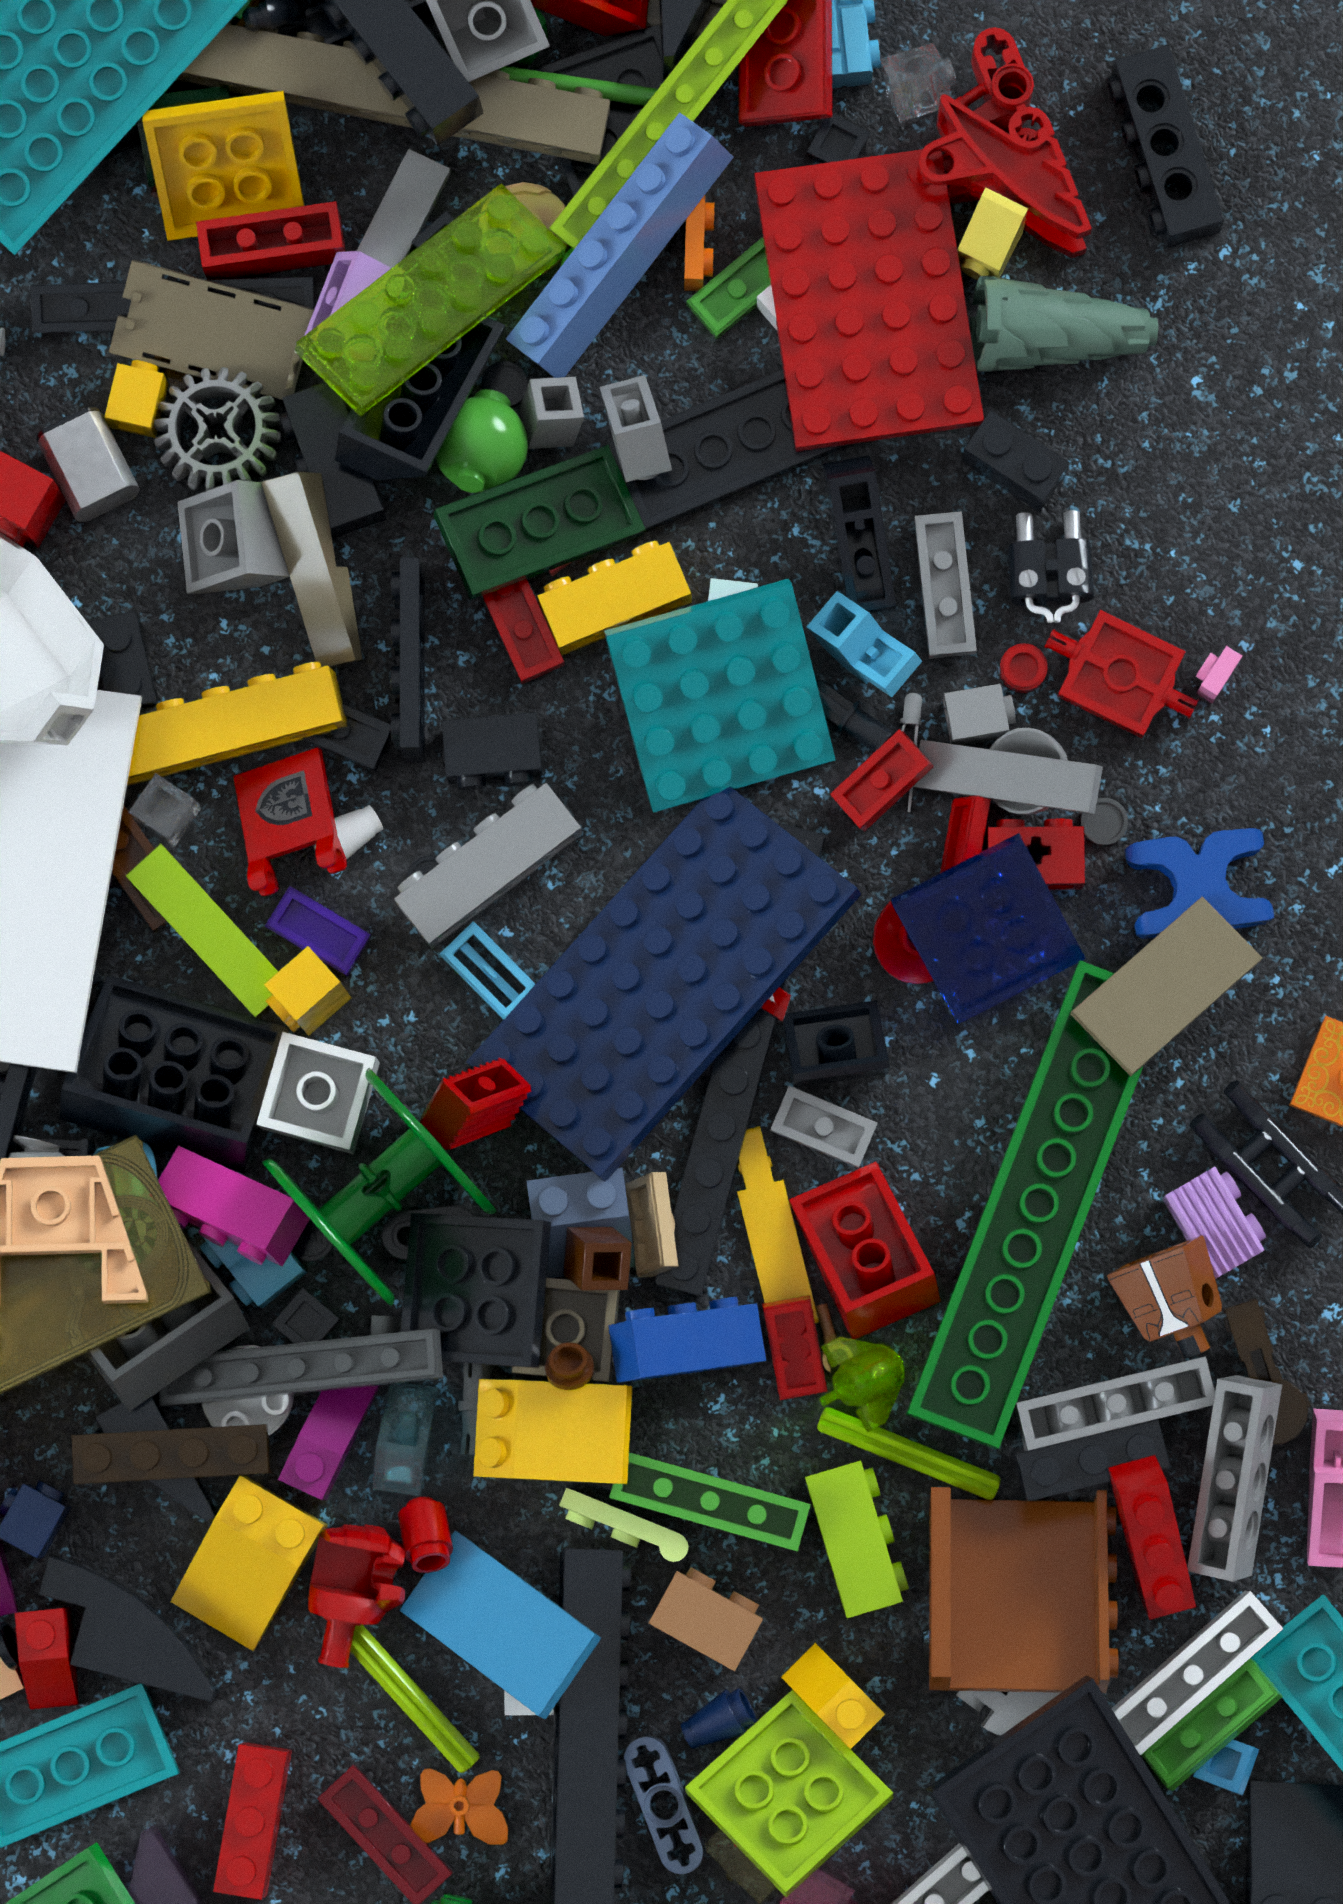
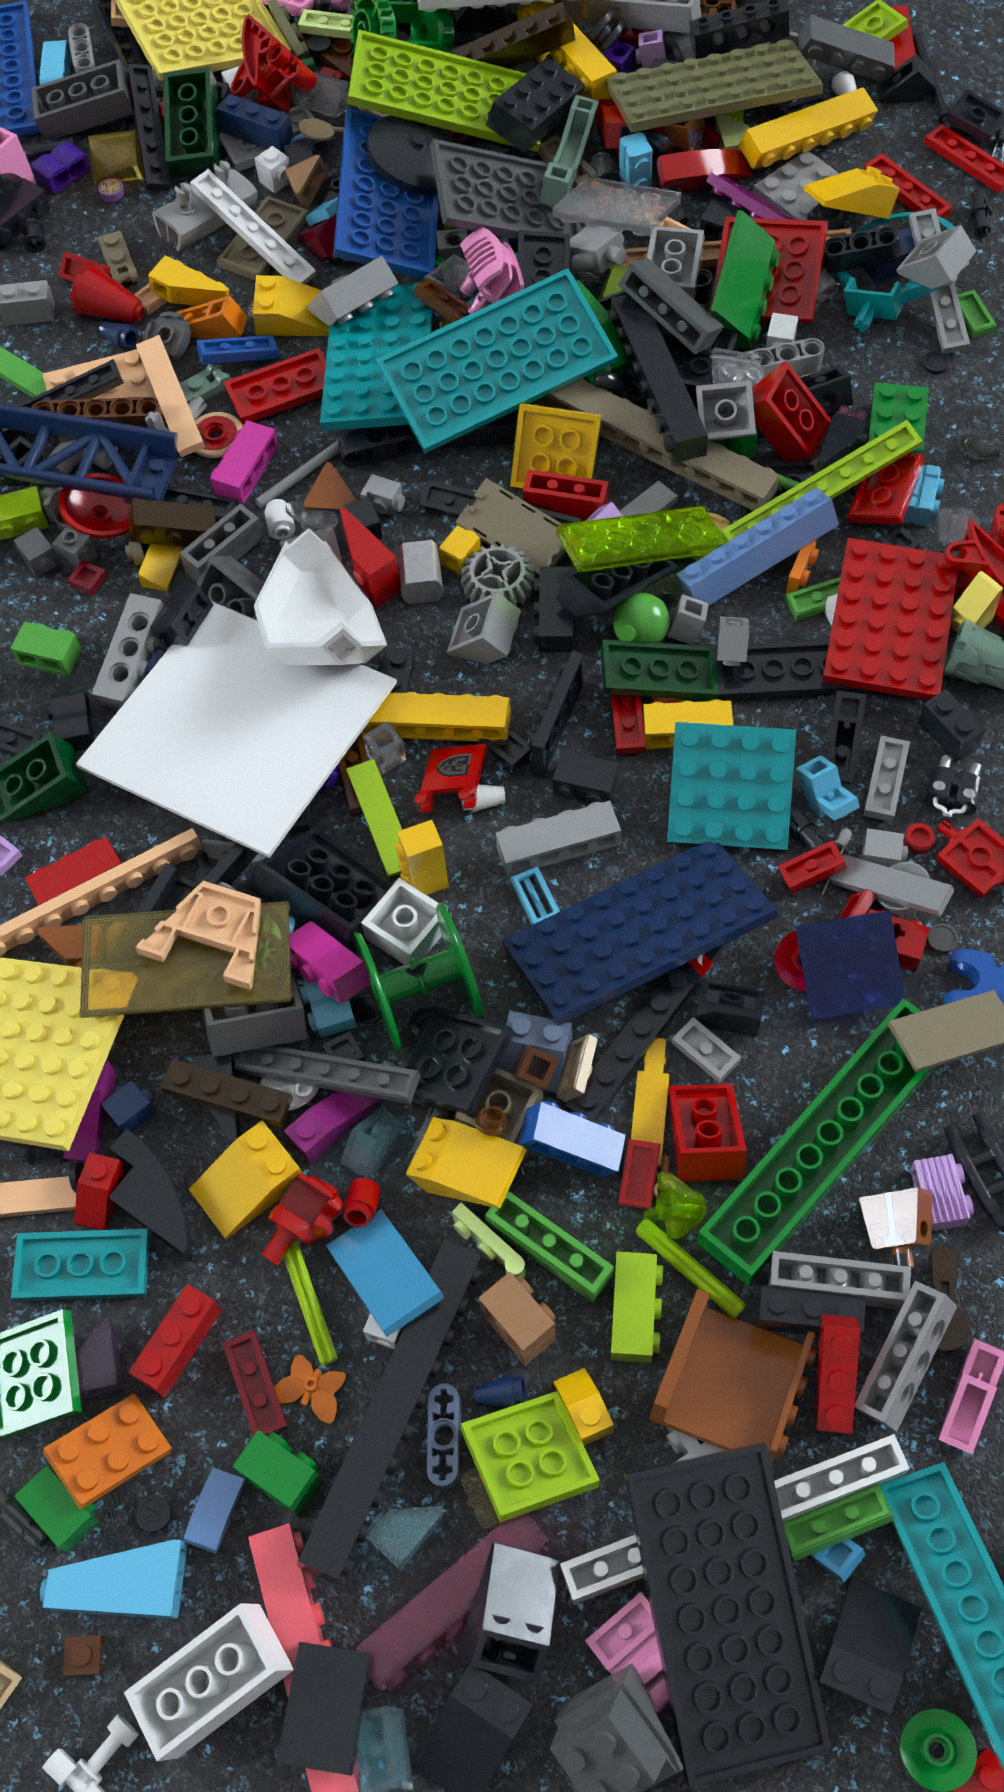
camera: 20 degrees right, 20 degrees down
(319, 585) = (521, 663): dark tan slope -> none
(325, 932) = (456, 852): dark purple tile -> none
(475, 1103) = (497, 952): red brick -> none

